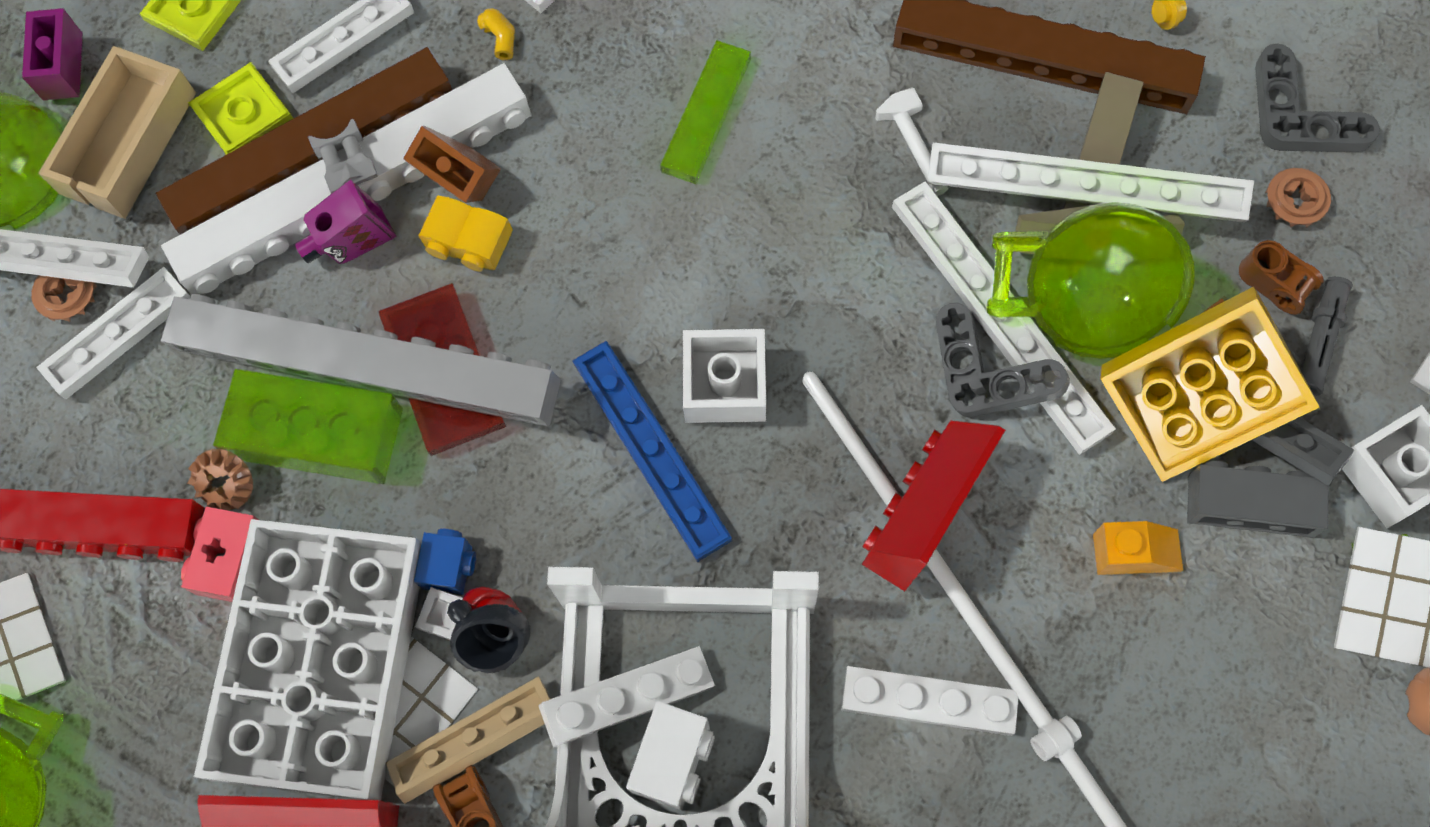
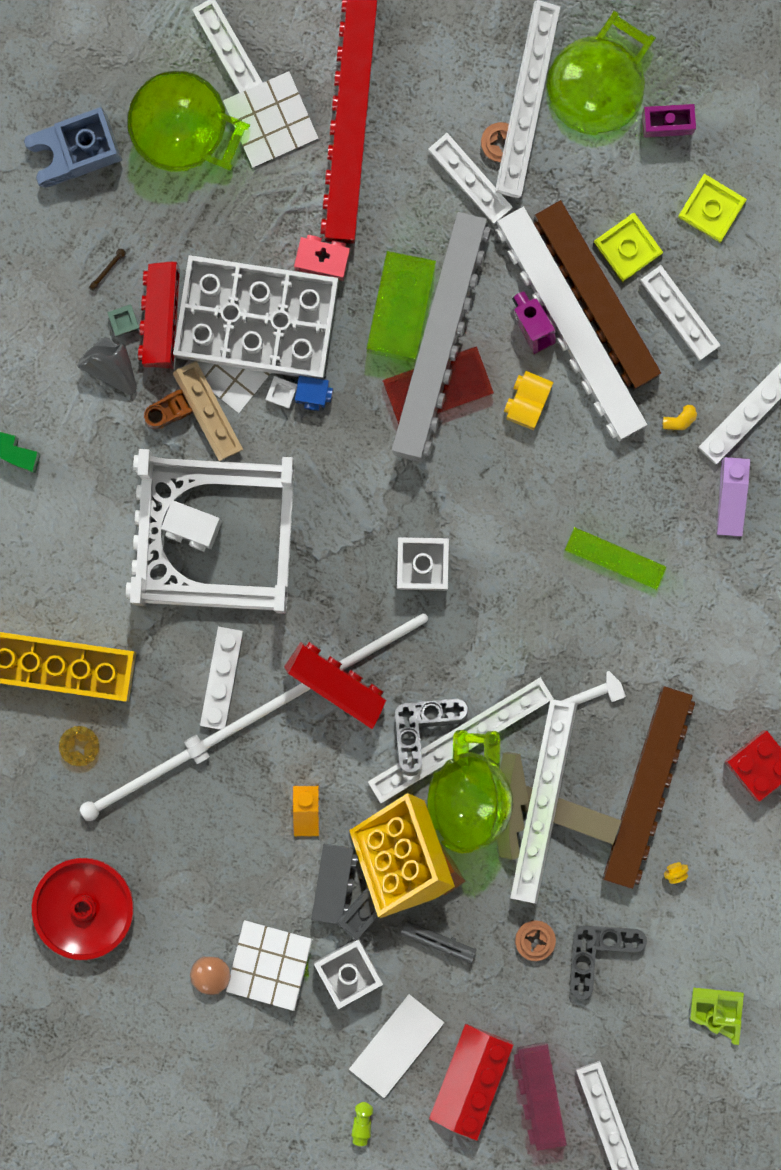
camera: 85 degrees right, 15 degrees up
(118, 132) = (608, 171): tan piece -> none
(219, 463) = (376, 254): nougat gear -> none
(355, 168) = (565, 323): light grey piece -> none
(452, 164) = (573, 392): dark orange slope -> none
(479, 634) = (269, 420): black piece -> none
(625, 696) = (227, 501): white plate -> none
(652, 451) = (381, 517): blue tile -> none
(1282, 277) = (477, 921): dark orange piece -> none

